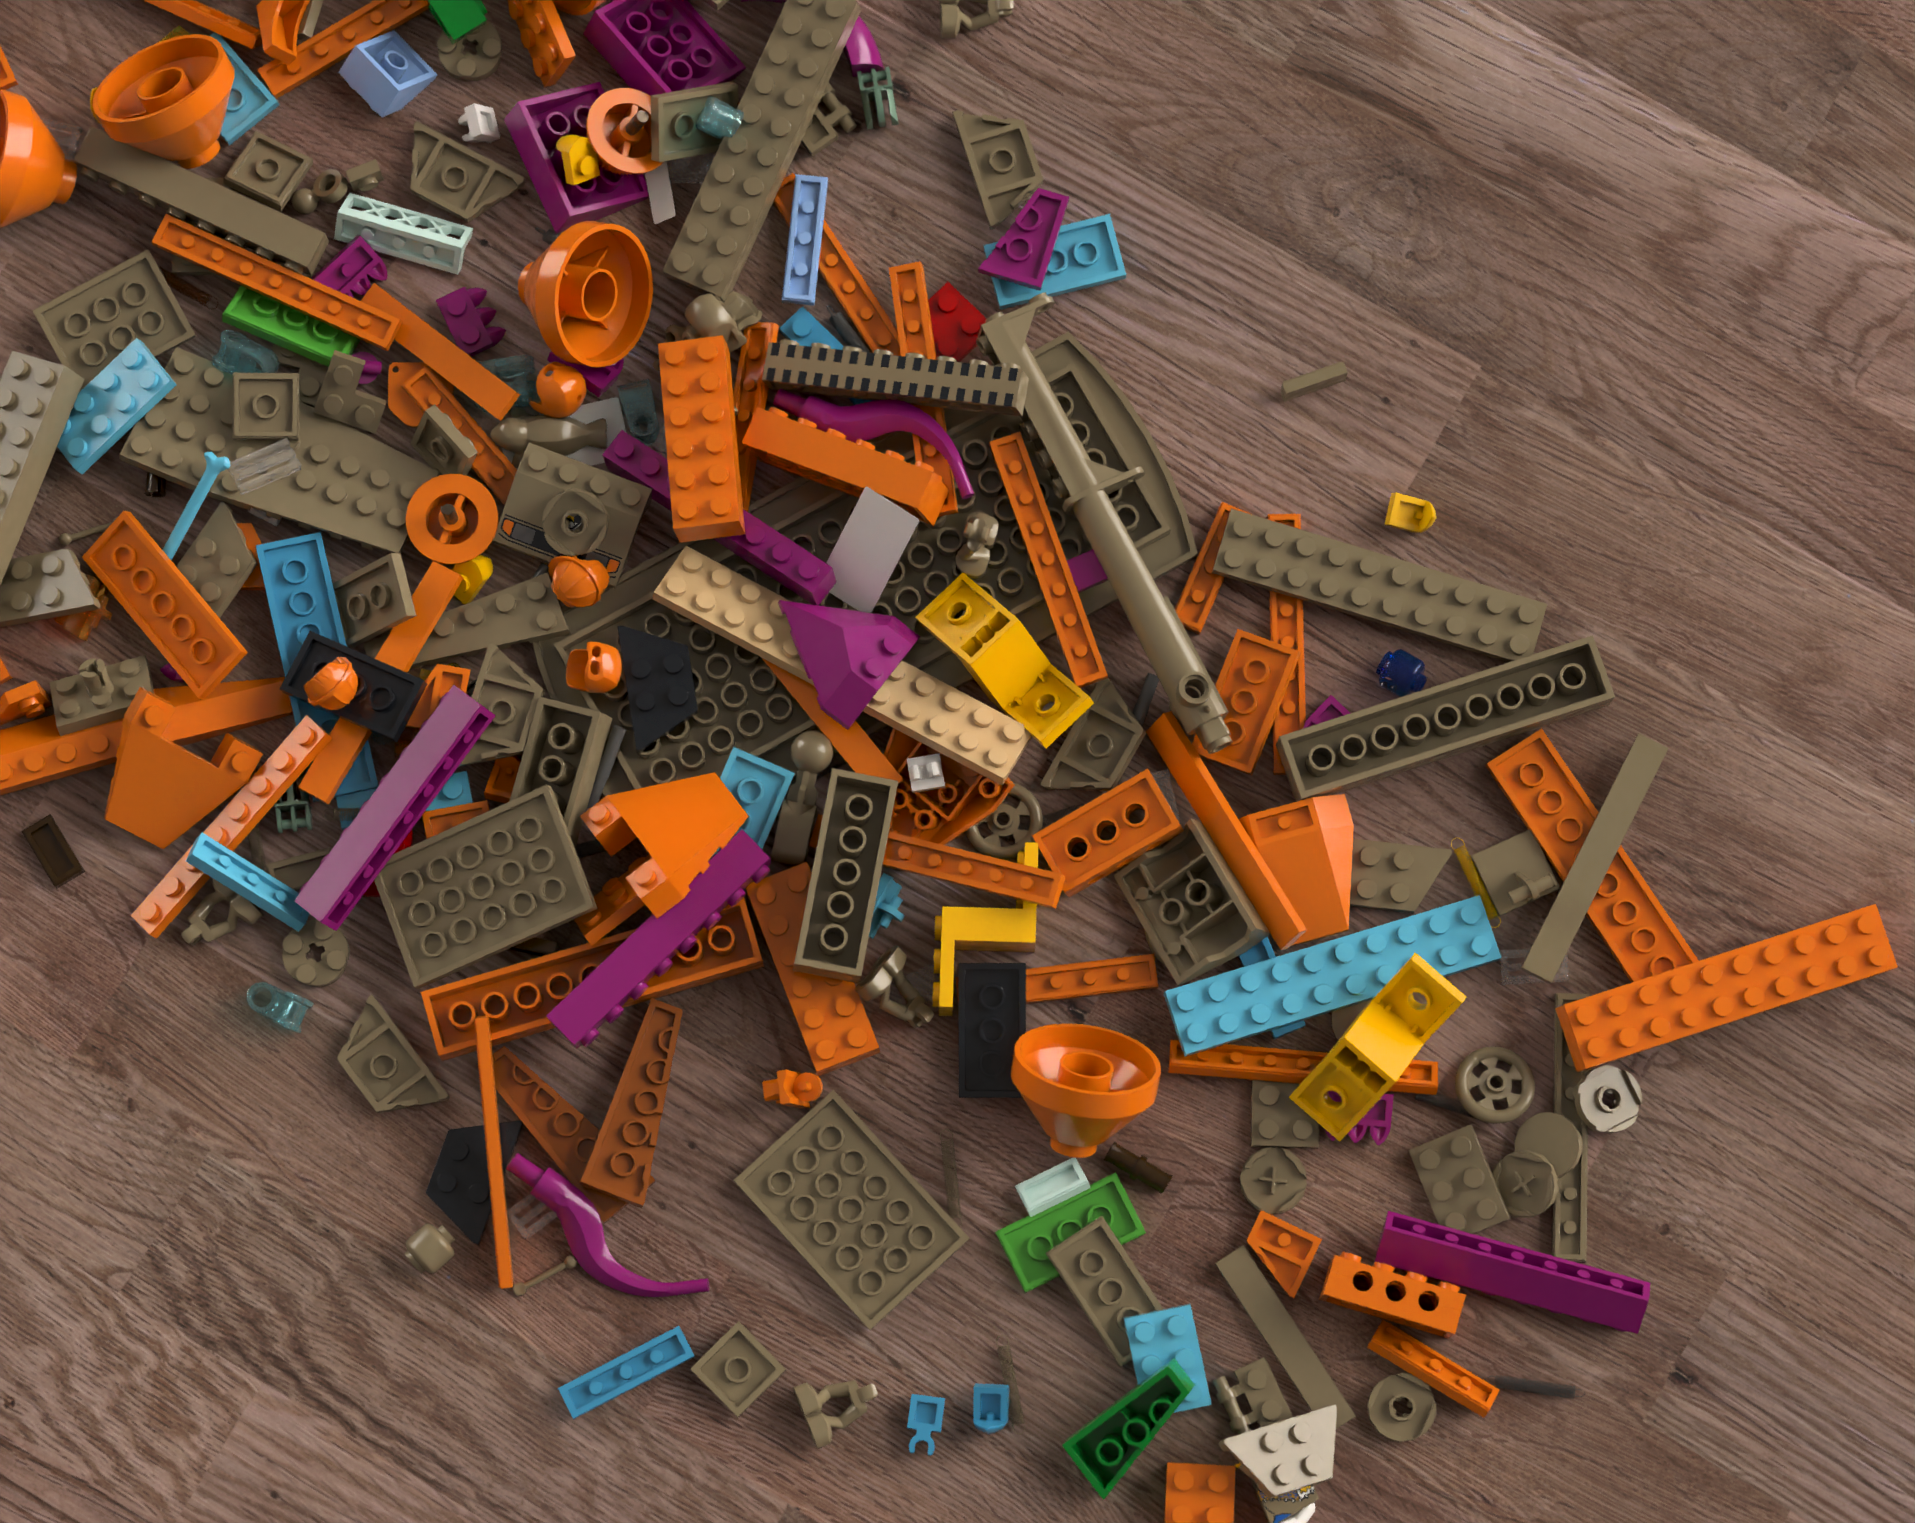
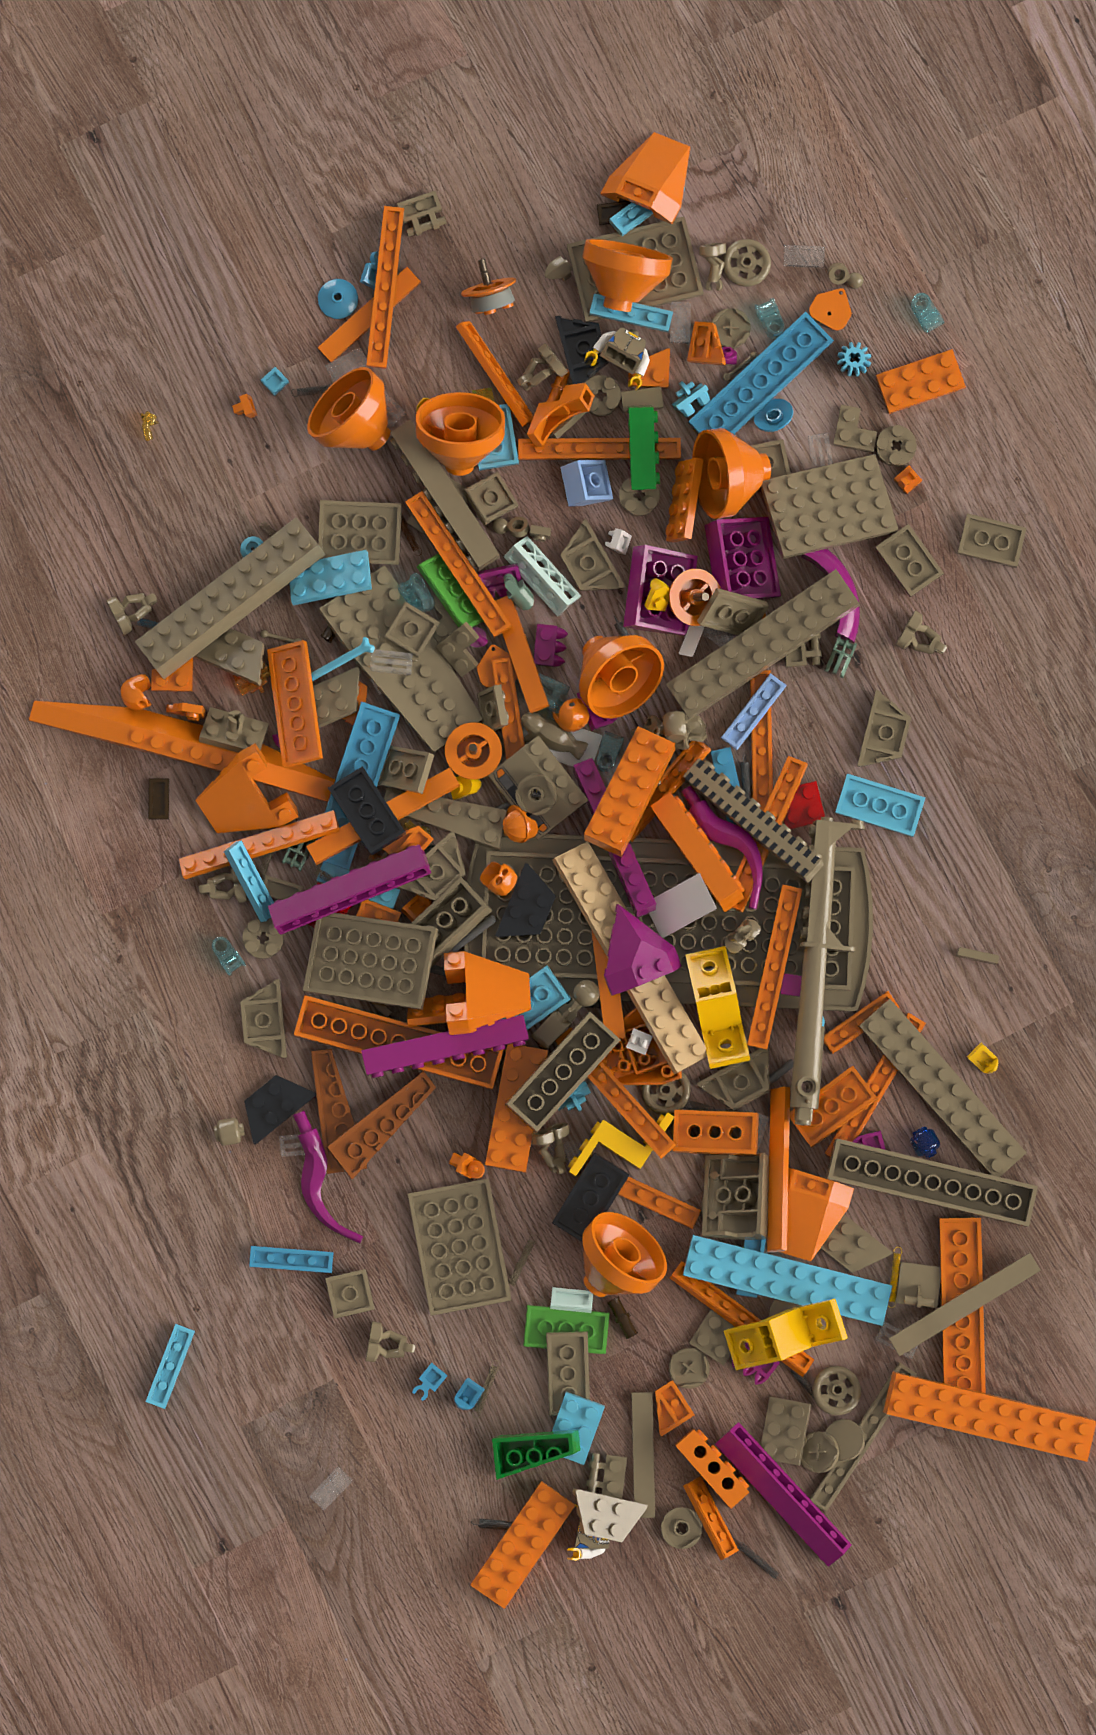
camera: 30 degrees right, 5 degrees up
(333, 685) = (356, 805): orange piece -> none
(384, 272) = (518, 592): none -> sand green arm
(493, 1152) = (299, 1087): orange tile -> none
(521, 1288) = (297, 1183): dark tan hinge -> none
(719, 118) = (746, 621): clear light blue piece -> none
(1028, 245) = (871, 788): magenta wing -> none
(1589, 1096) = (881, 1442): plate -> none

